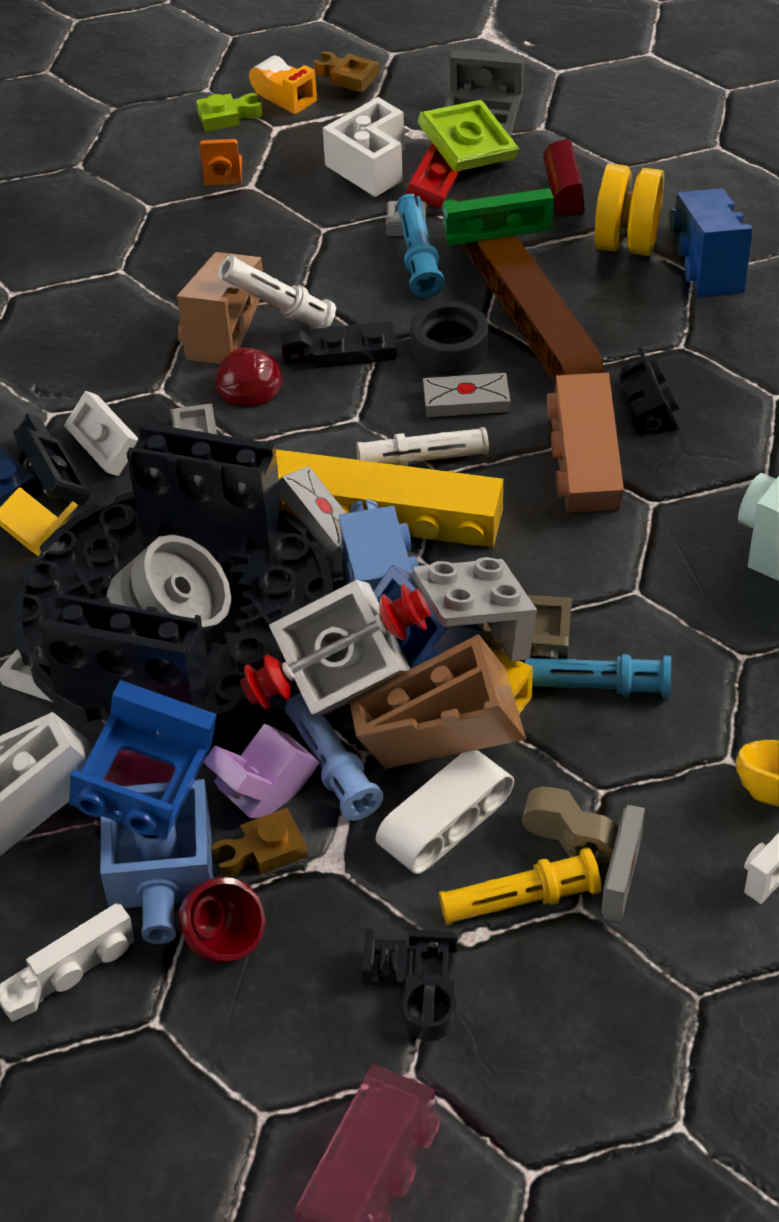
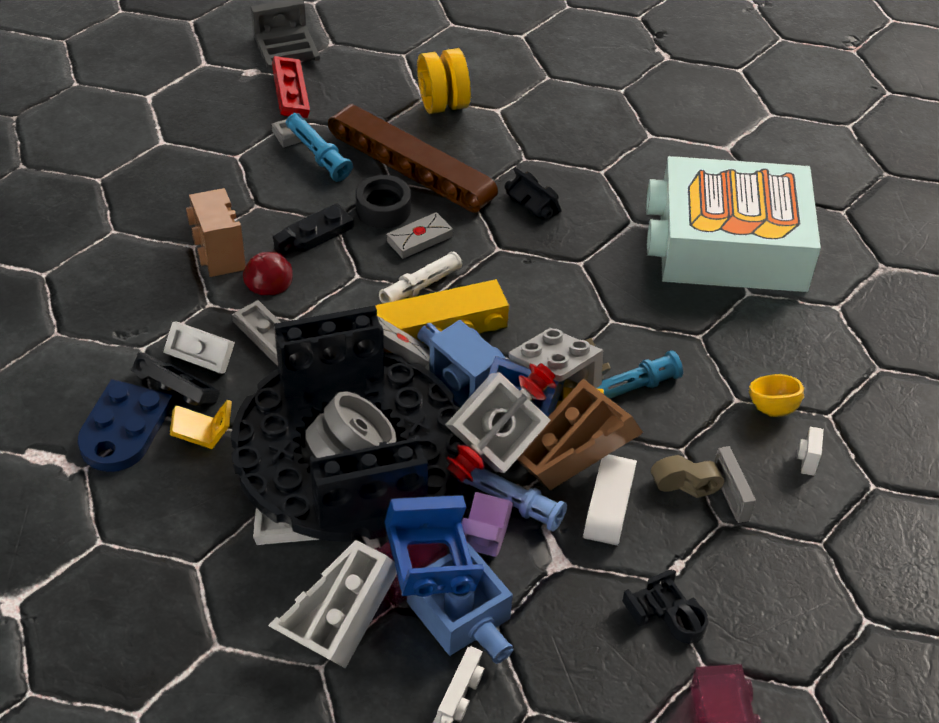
camera: 35 degrees left, 0 degrees up
(221, 162) = (135, 132): orange bracket -> none
(222, 919) = (533, 627): dark red piece -> none
(223, 111) = (102, 96): lime plate -> none
(266, 842) = (517, 566): pearl gold plate -> none
(283, 83) = (135, 63): light orange leg -> none
(292, 301) = (269, 211): white pin -> none
(350, 72) = (175, 41): pearl gold plate -> none
(367, 146) = (234, 91): white brick -> none
(468, 135) = (296, 62): lime tile -> none
(498, 216) = (367, 110): green hinge -> none
(544, 883) = (698, 516): yellow pin -> none
(564, 178) = (378, 71): dark red brick -> none
(585, 443) = (525, 238): nougat wedge -> none
(711, 241) = (504, 85): blue wedge -> none

